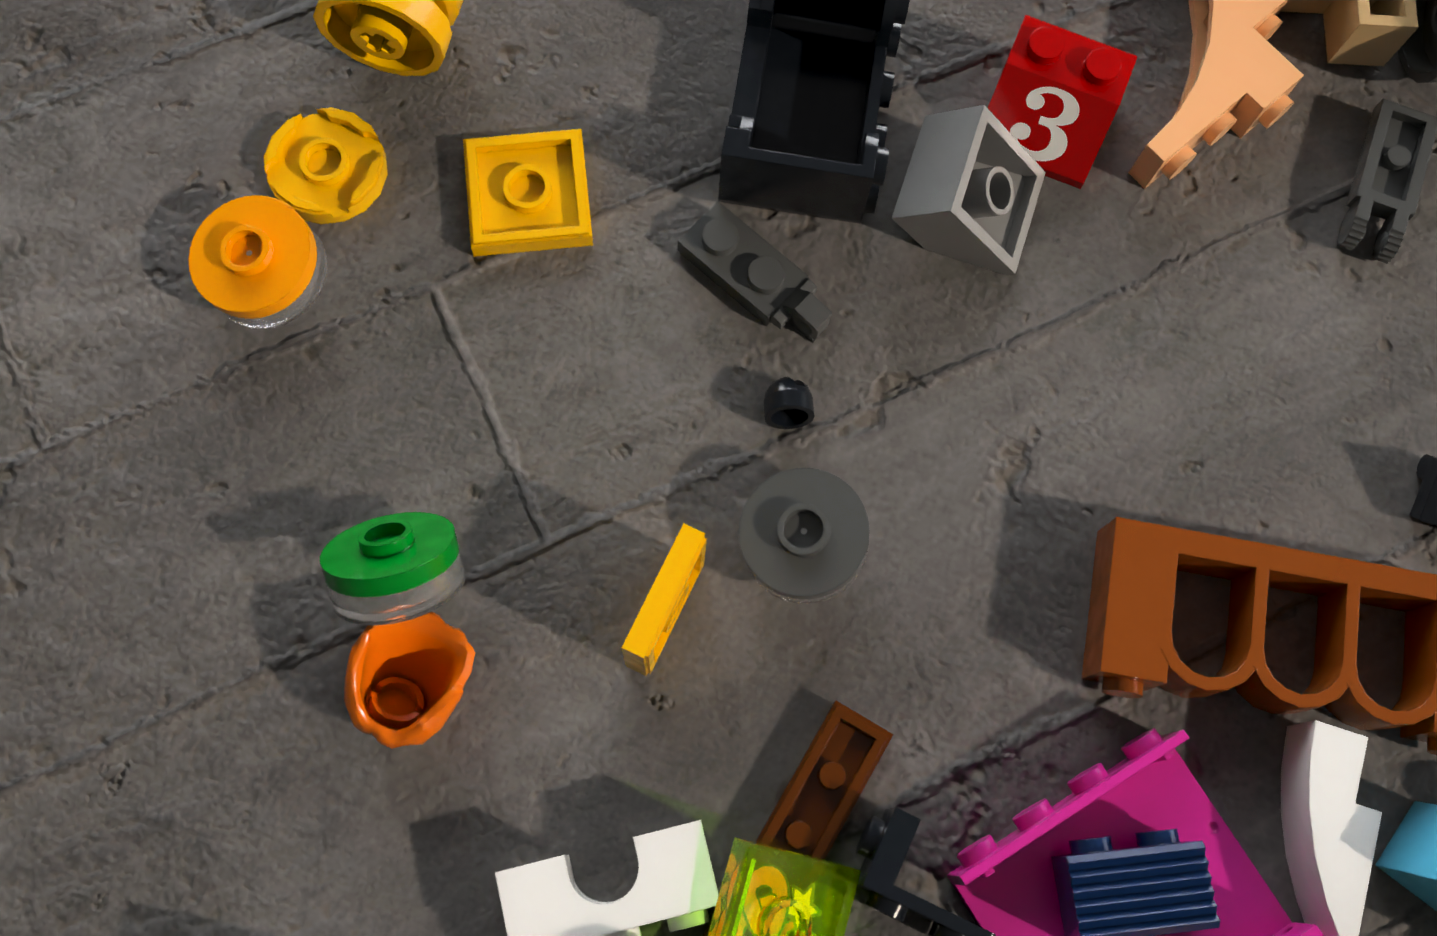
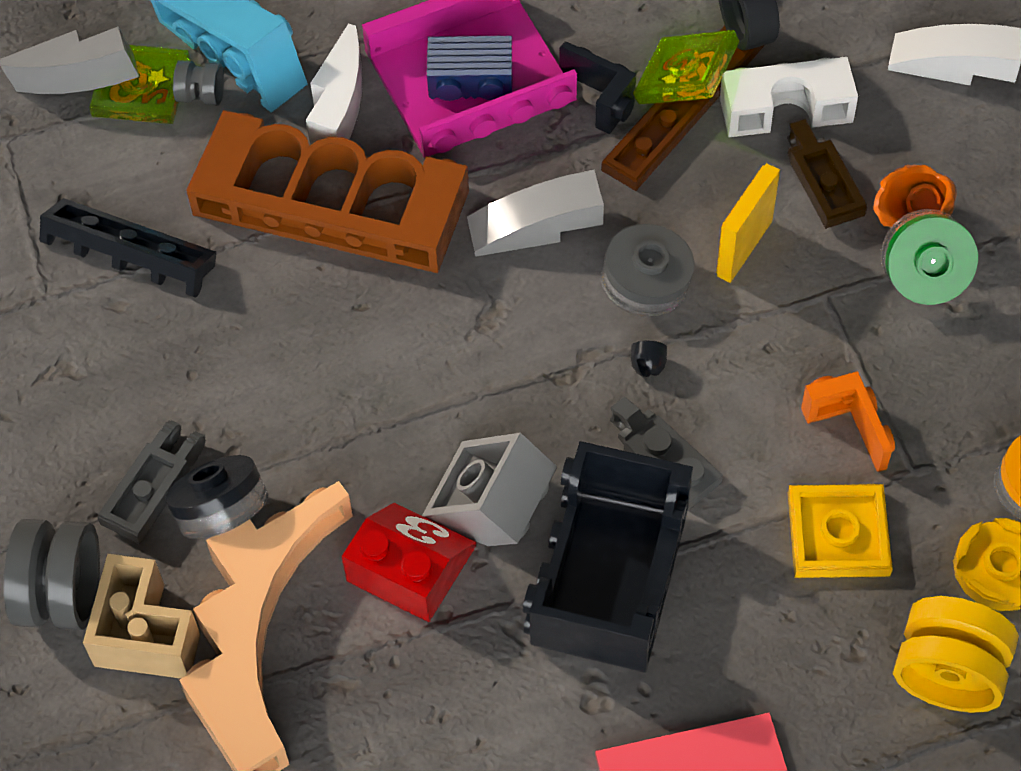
camera: 165 degrees left, 15 degrees down
(532, 358) = (844, 394): none -> orange bracket
(550, 736) = (824, 176): none -> dark brown hinge
(975, 617) = (537, 214): none -> light grey slope
(1307, 133) = (217, 497): none -> black piece

